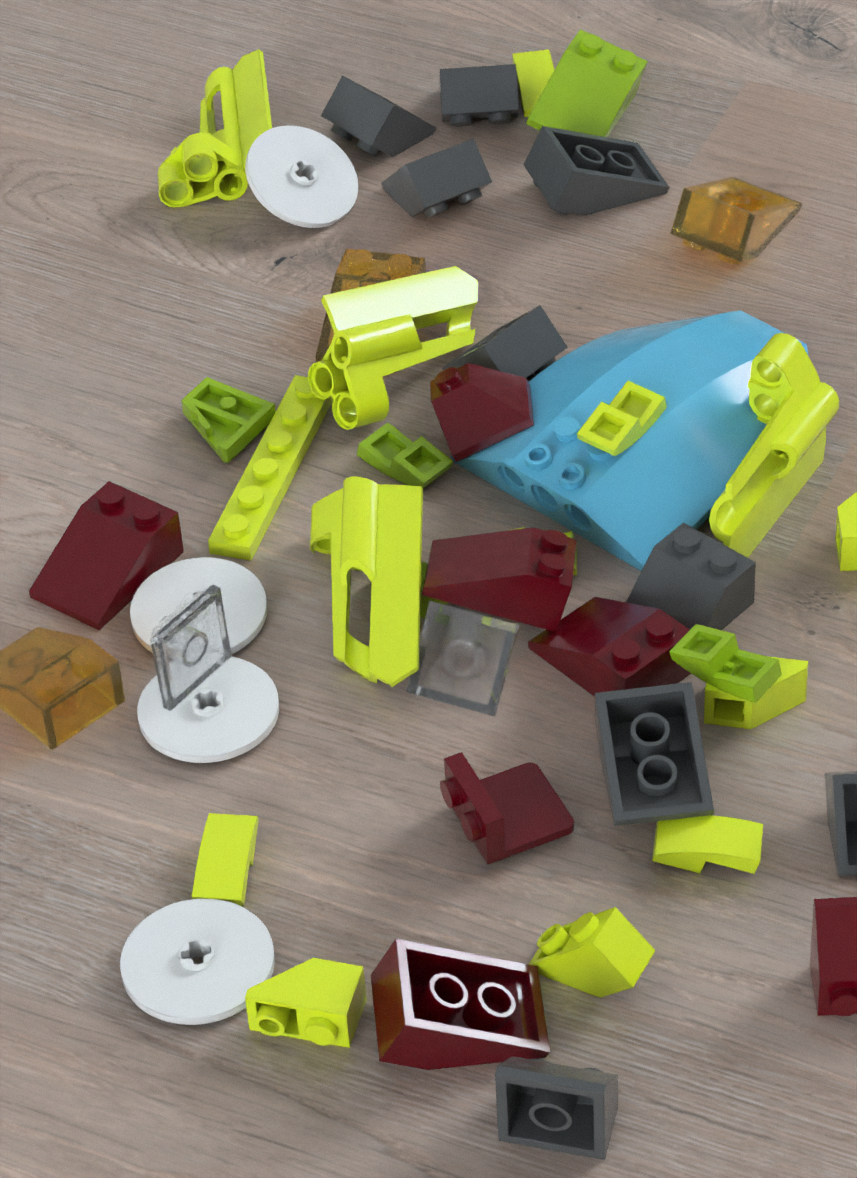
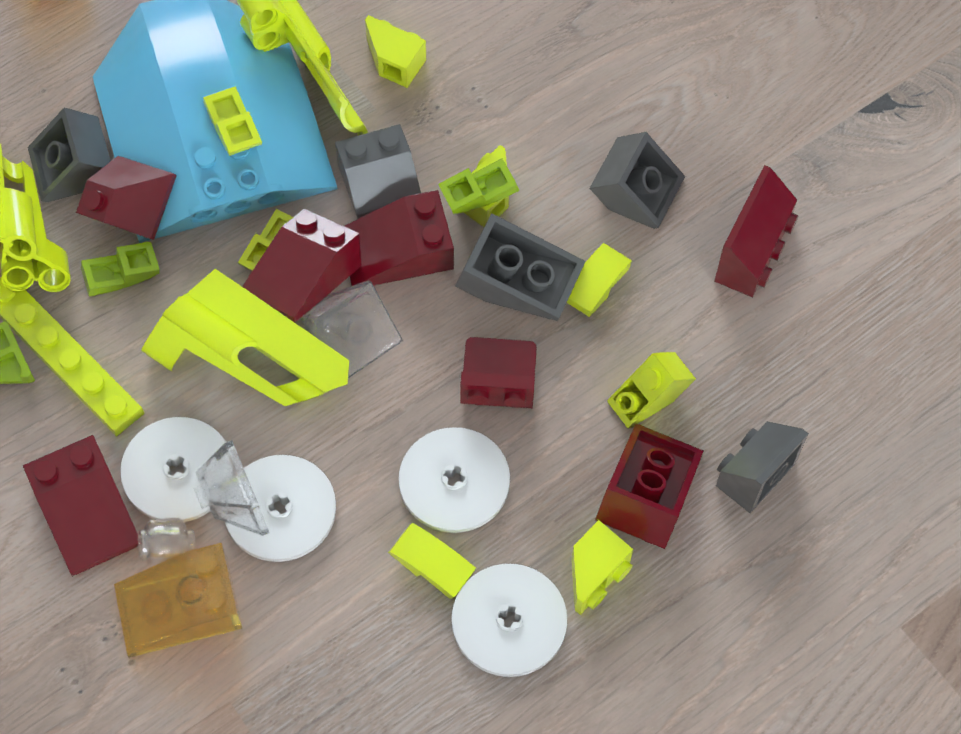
camera: 65 degrees left, 20 degrees up
(106, 627) = (164, 540): none -> clear head
(308, 843) = (467, 503): none -> white piece

